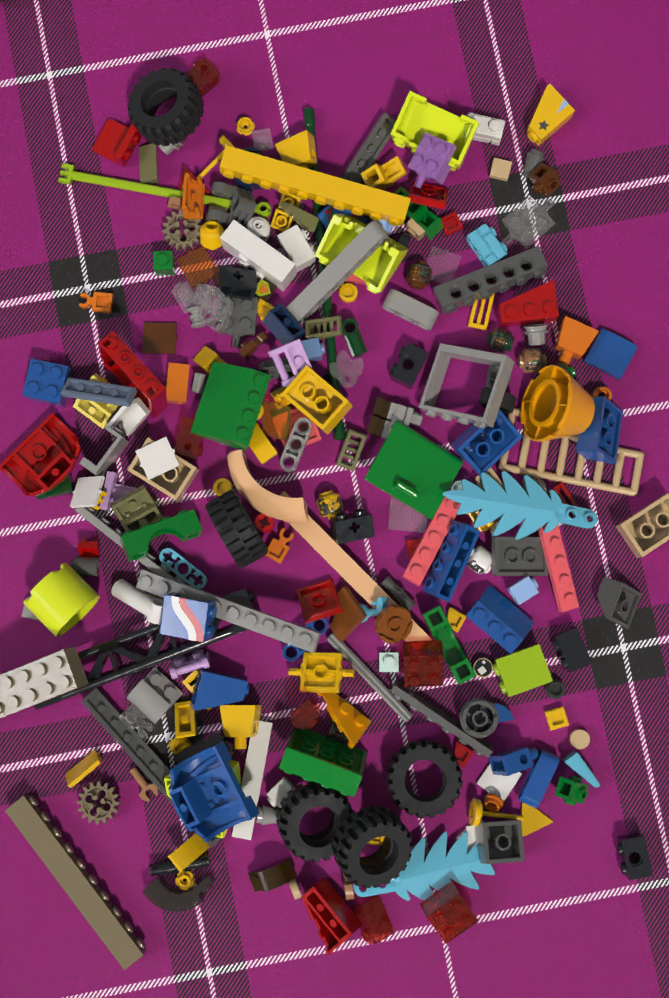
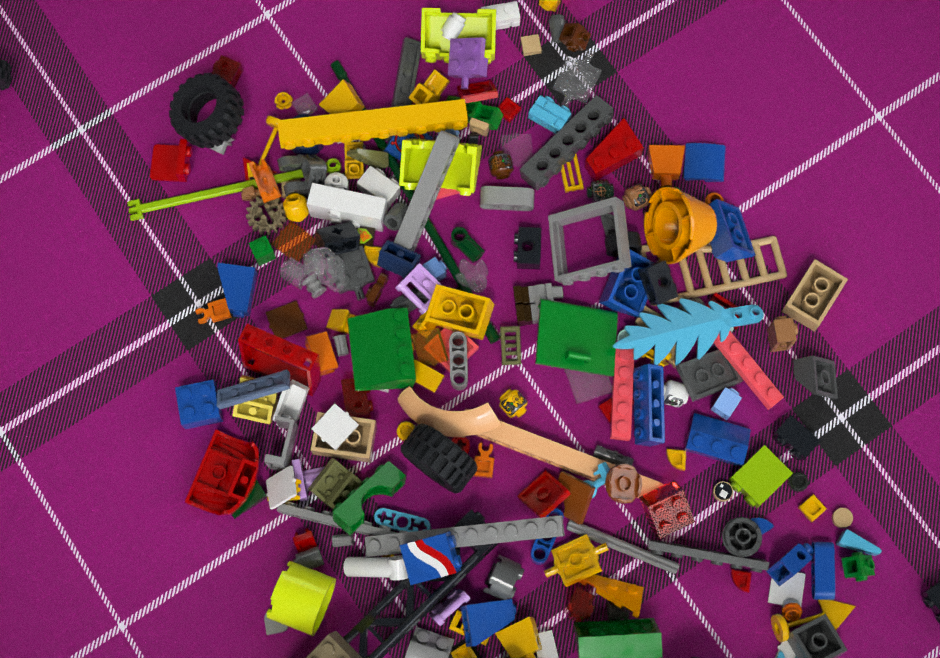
camera: 25 degrees left, 10 degrees down
(122, 561) = (342, 540): none -> light grey piece
(127, 289) = (238, 287): none -> blue slope
(148, 164) = (208, 169): olive slope -> none
(249, 659) = (503, 578): none -> dark grey brick
(299, 283) = (395, 216): none -> dark grey brick
(310, 331) = (421, 249): olive slope -> none
(348, 292) = (443, 207): yellow tile -> none
(360, 530) = (538, 419): black brick -> none
(388, 661) = (634, 524): light aqua plate -> none
(433, 121) = (453, 26): none -> white brick
(433, 804) = (742, 604): black tyre -> none
(453, 654) = (697, 494): green arch -> none
(506, 443) = (649, 277): none -> black brick
(536, 333) = (630, 172): light grey piece -> none
(604, 549) = (782, 334): none -> medium nougat brick

